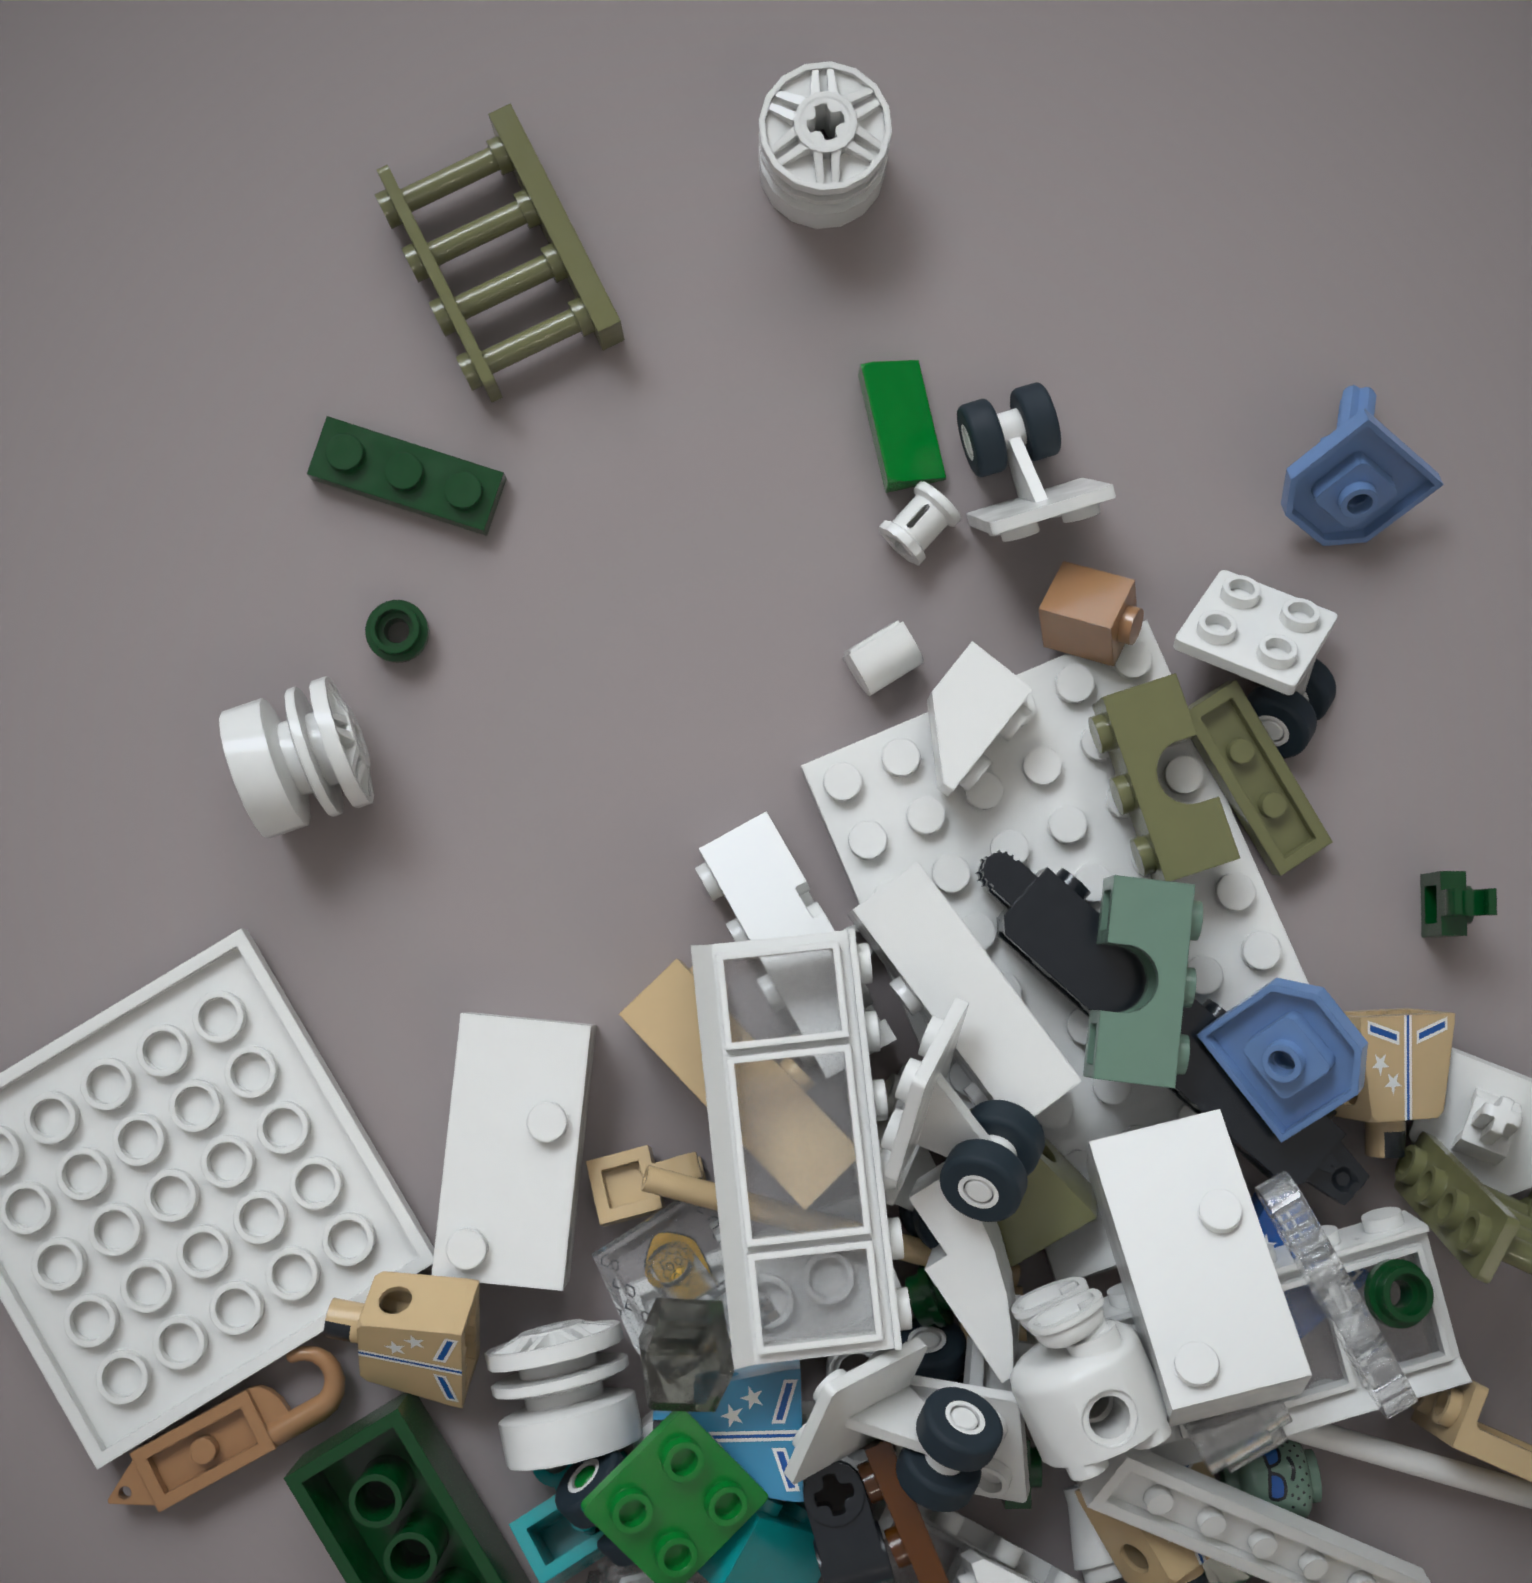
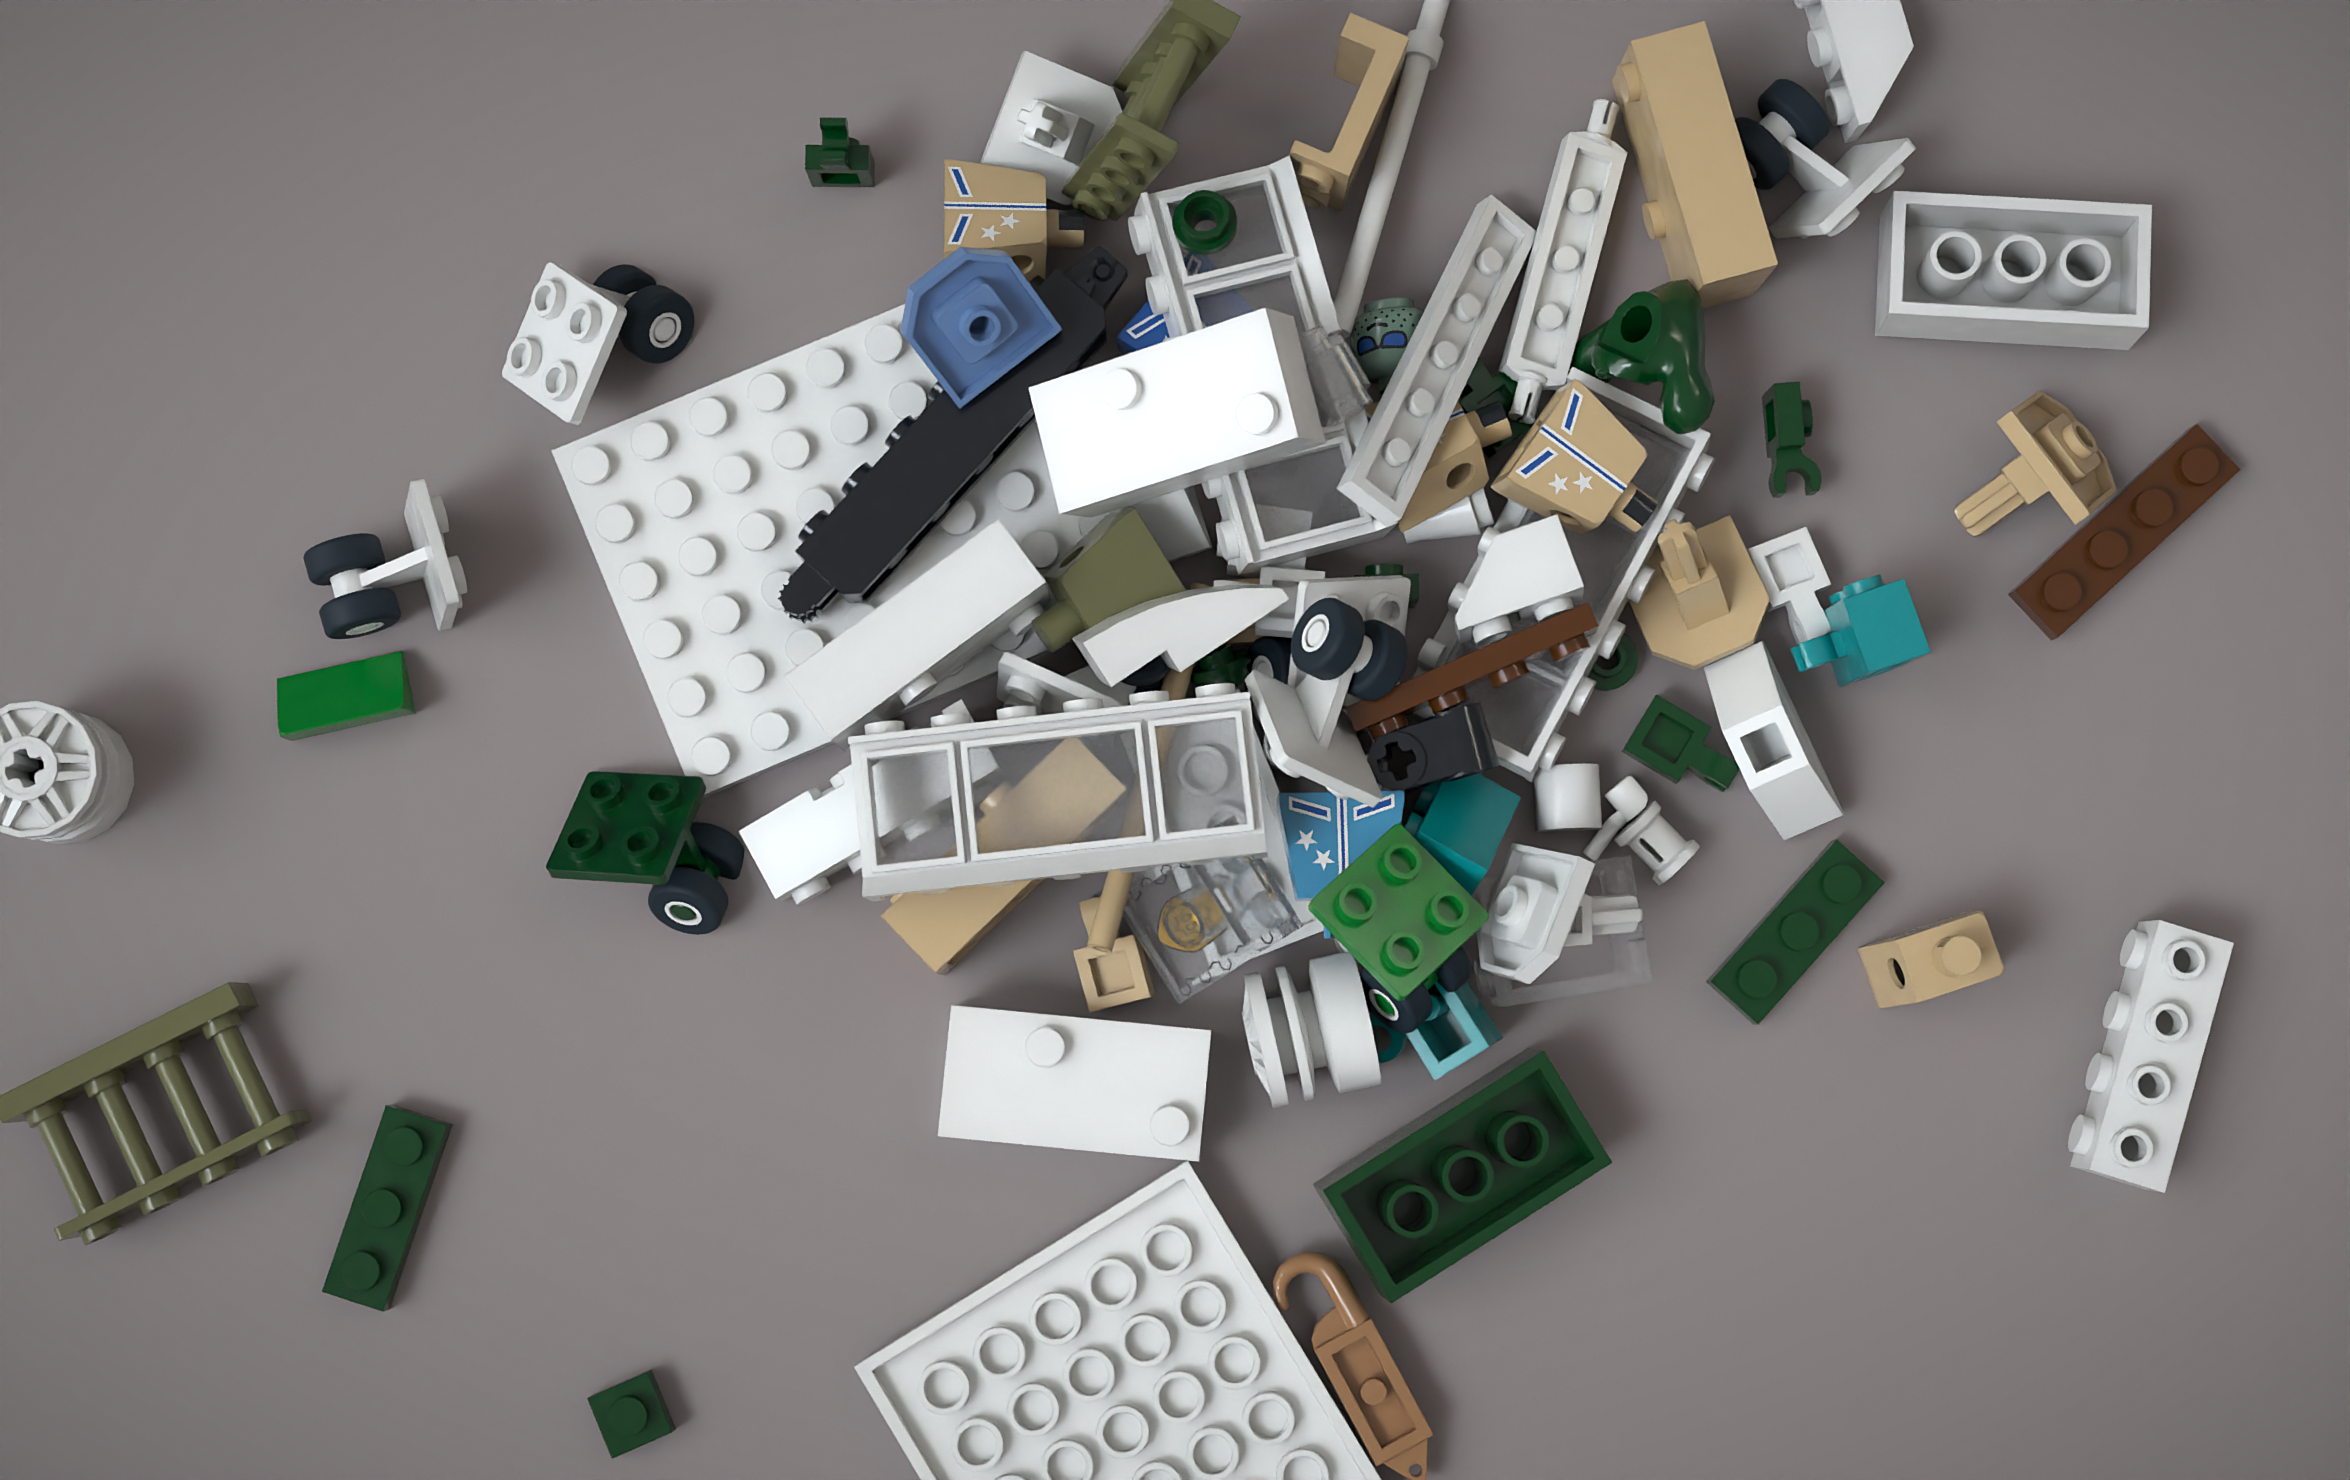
camera: 90 degrees left, 0 degrees up
(197, 709) = (631, 1413): none -> dark green plate
(286, 761) = (677, 1309): white wheel -> none
(383, 618) = (530, 1216): dark green plate -> none
(414, 1333) = (1255, 1179): tan torso -> none
(685, 1355) = (1258, 900): clear smoke panel -> none
(763, 718) = (645, 834): none -> dark green plate
(883, 657) = (585, 715): white brick -> none
(919, 523) = (447, 677): white bush -> none
(968, 712) = (642, 629): white slope -> none
(985, 1148) = (1060, 612): plate -> none
(1085, 1381) = (1283, 517): white piece -> none
(1090, 613) = (543, 506): medium nougat brick -> none
(1156, 925) = (850, 447): sand green arch -> none
(1171, 835) = (766, 428): olive arch -> none
(1256, 779) = (711, 347): olive plate -> none
(1336, 1294) = (1202, 282): clear beam -> none
(1355, 477) = (409, 241): medium blue piece -> none

